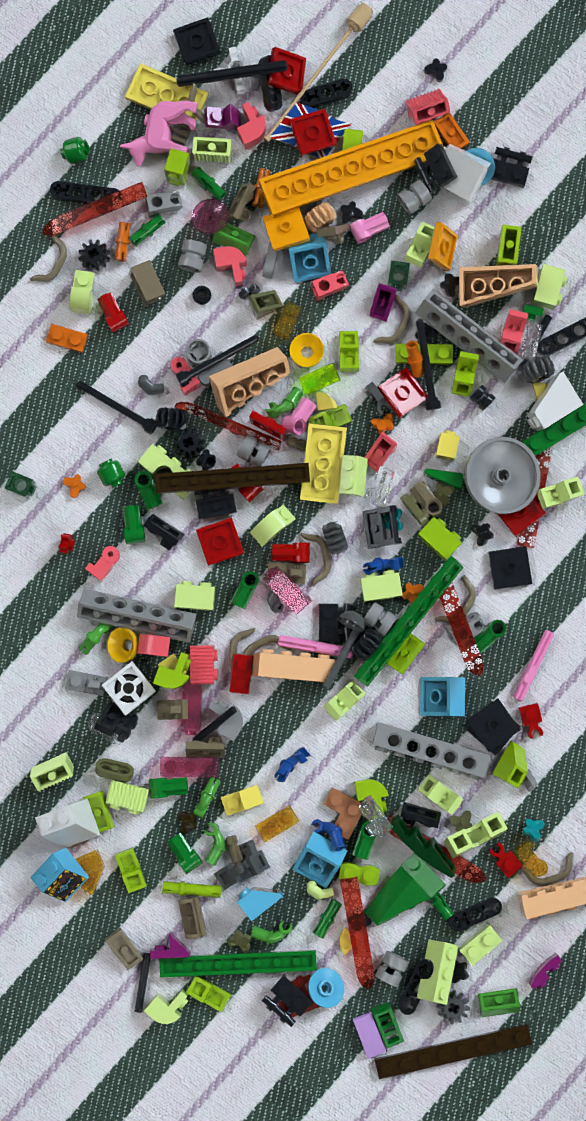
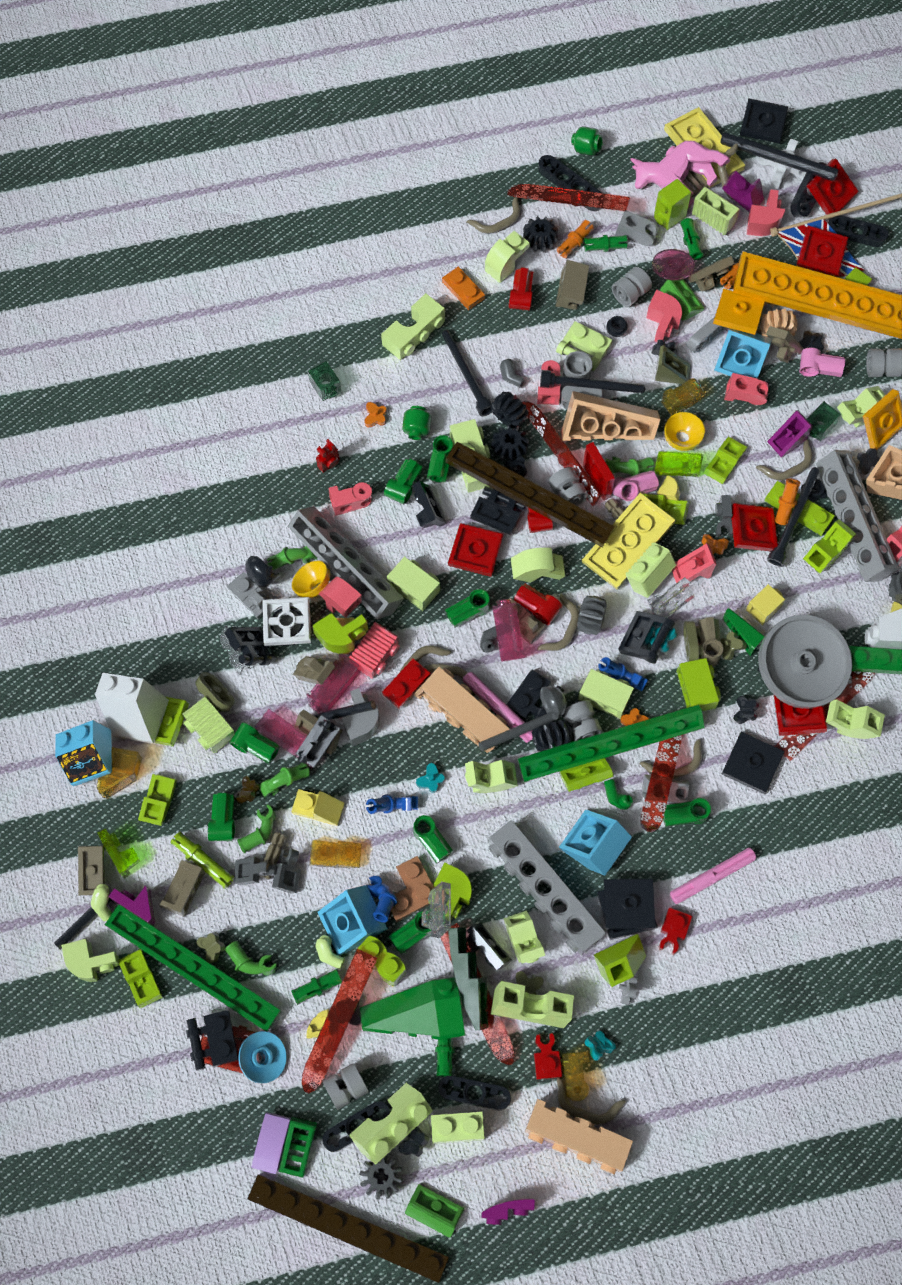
camera: 35 degrees right, 15 degrees down
(52, 772) = (154, 651): yellowish green brick -> none
(53, 413) = (402, 339): none -> yellowish green arch
(82, 663) = (259, 572): none -> black hair
(139, 928) = (123, 860): none -> clear neon green hinge
(146, 965) = (99, 901): none -> yellowish green arm
(186, 321) = (587, 341): none -> yellowish green plate
(212, 759) = (317, 741): none -> hinge
(257, 900) = (258, 914): medium azure slope -> none
(304, 728) = (431, 779): none -> teal piece
(336, 770) = (433, 840): none -> green piece
(437, 655) = (615, 798): none -> green arm
(485, 401) = (832, 582): black wheel -> none

